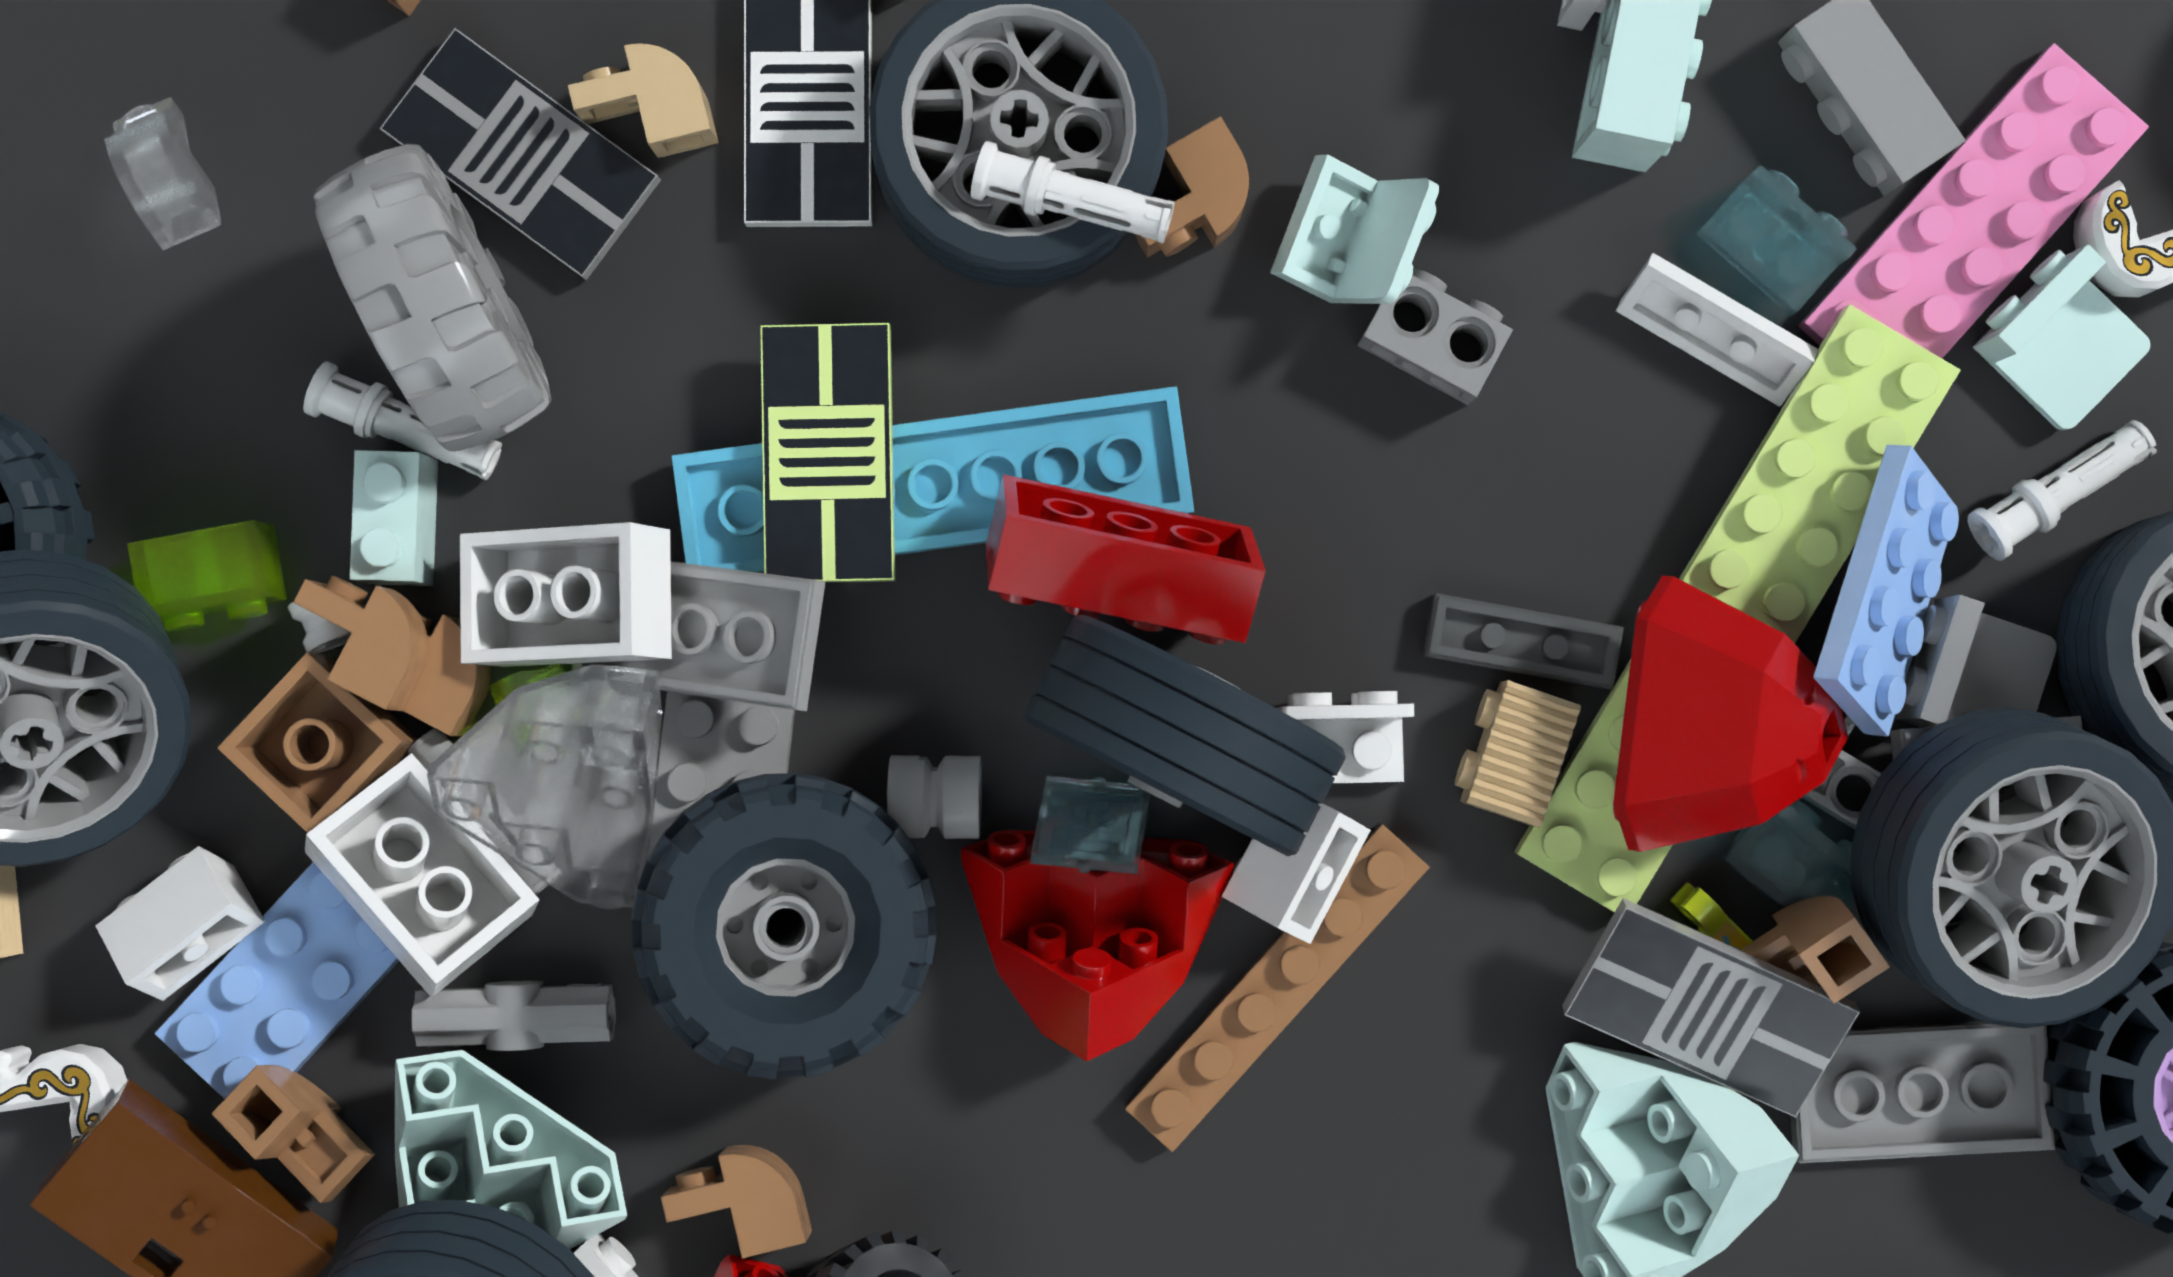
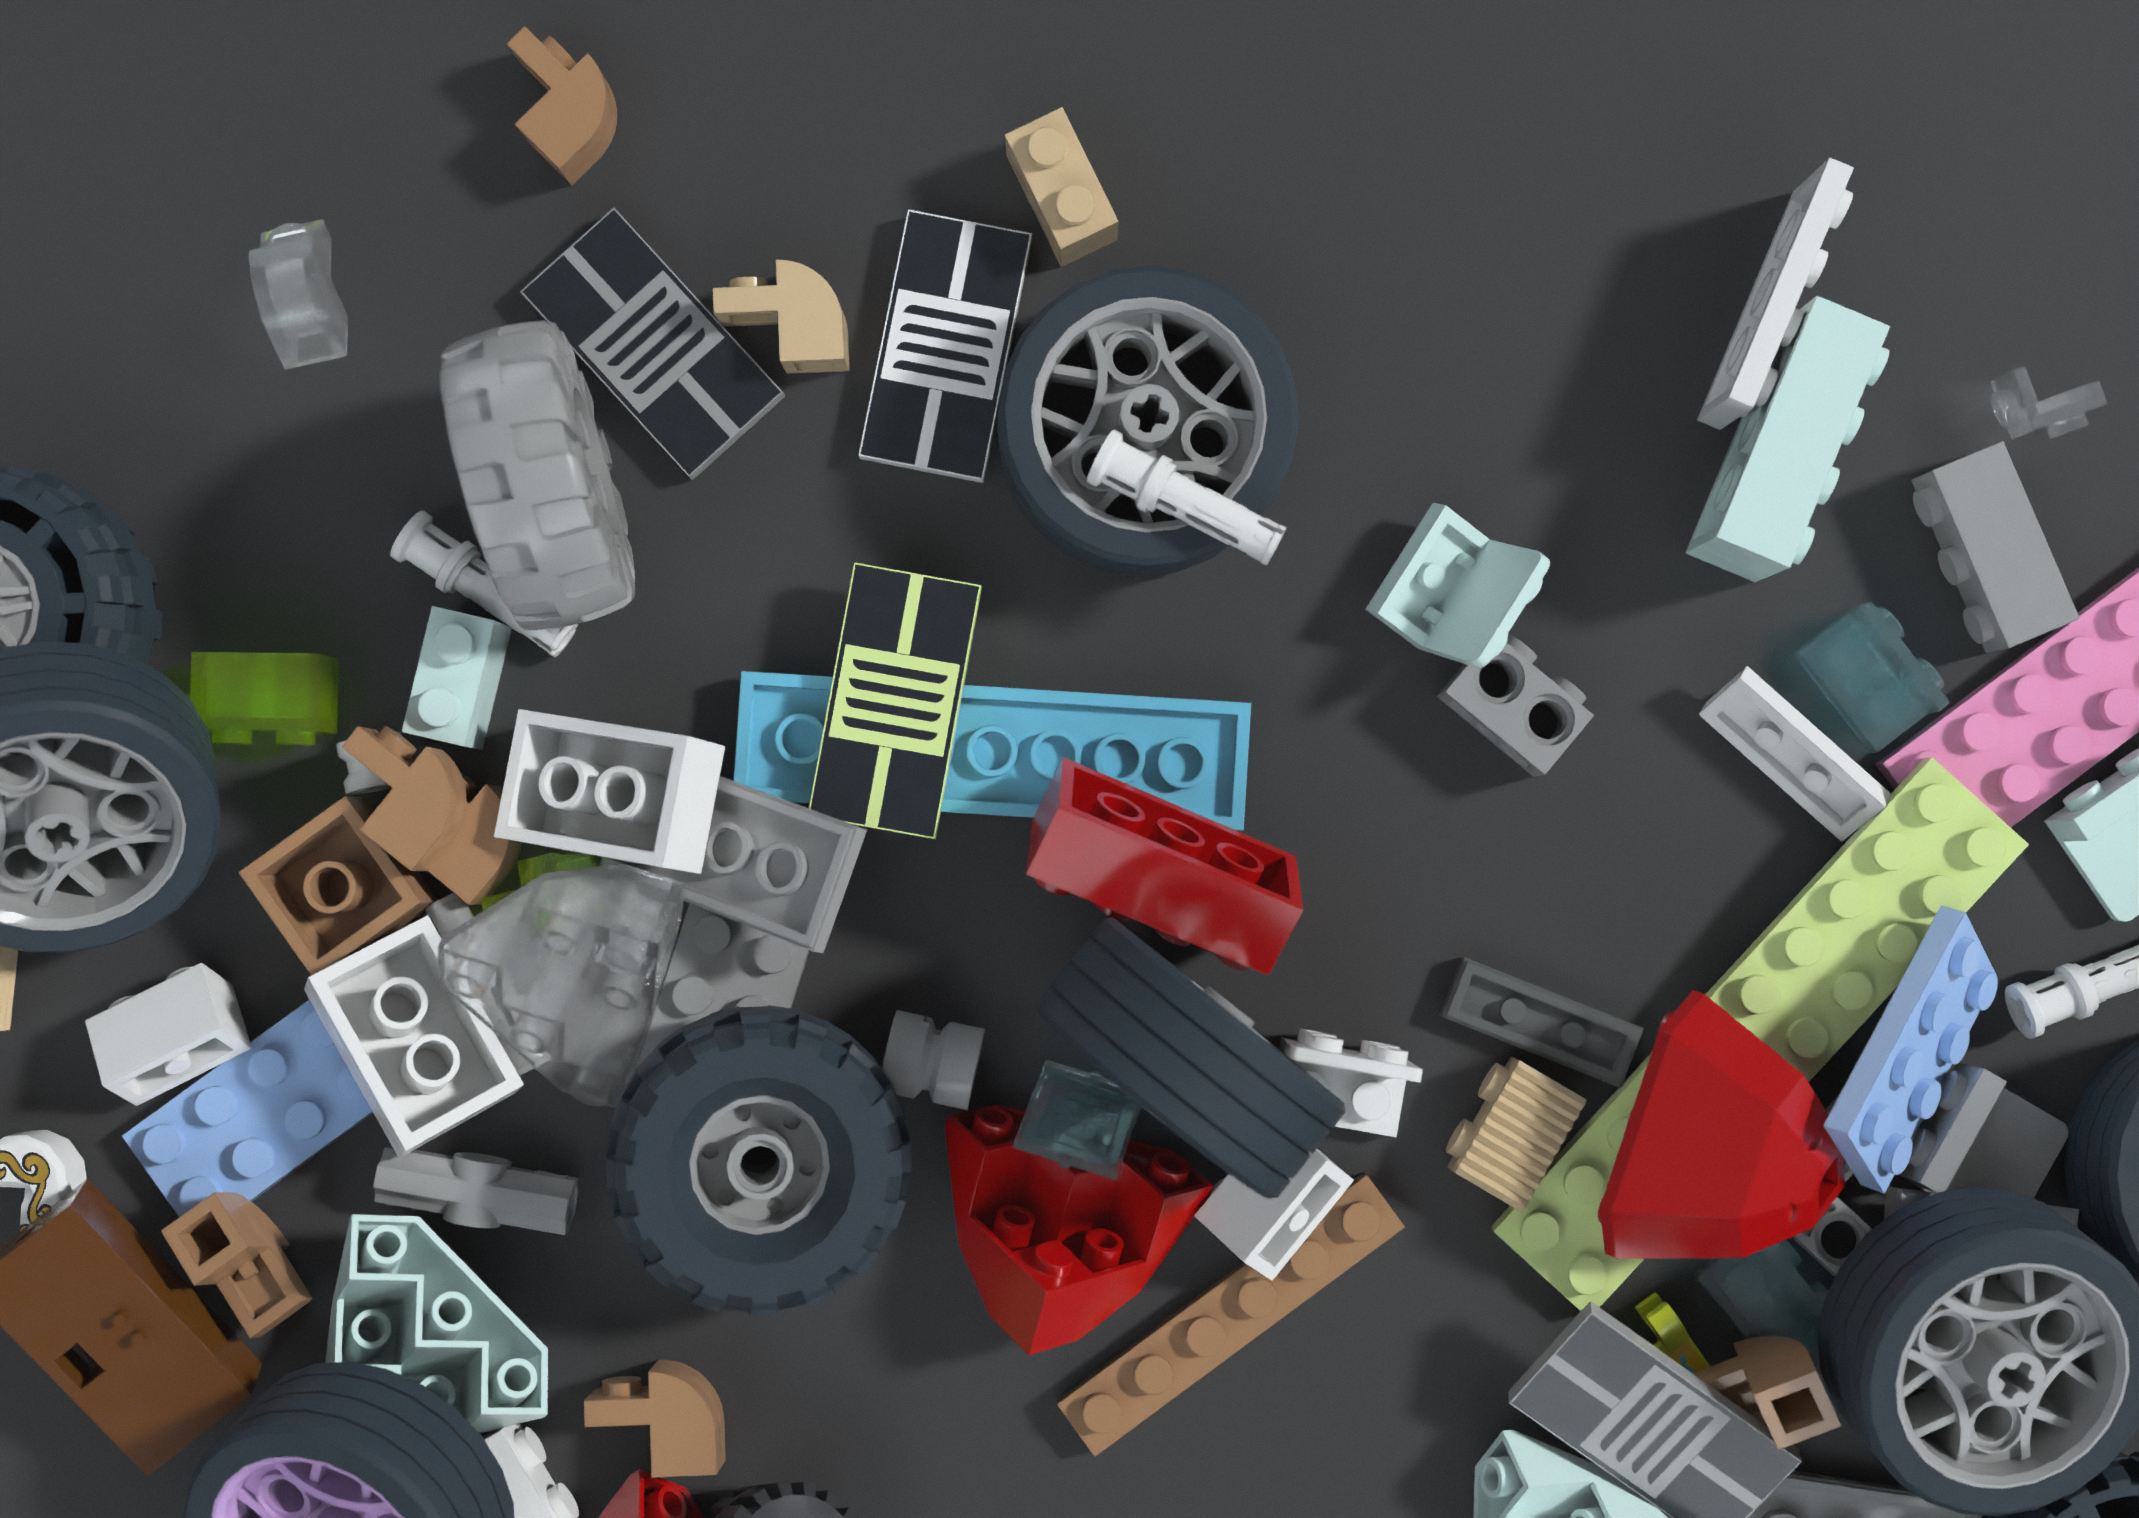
camera: 15 degrees right, 0 degrees up
(1213, 186) = (1327, 511): medium nougat brick -> none

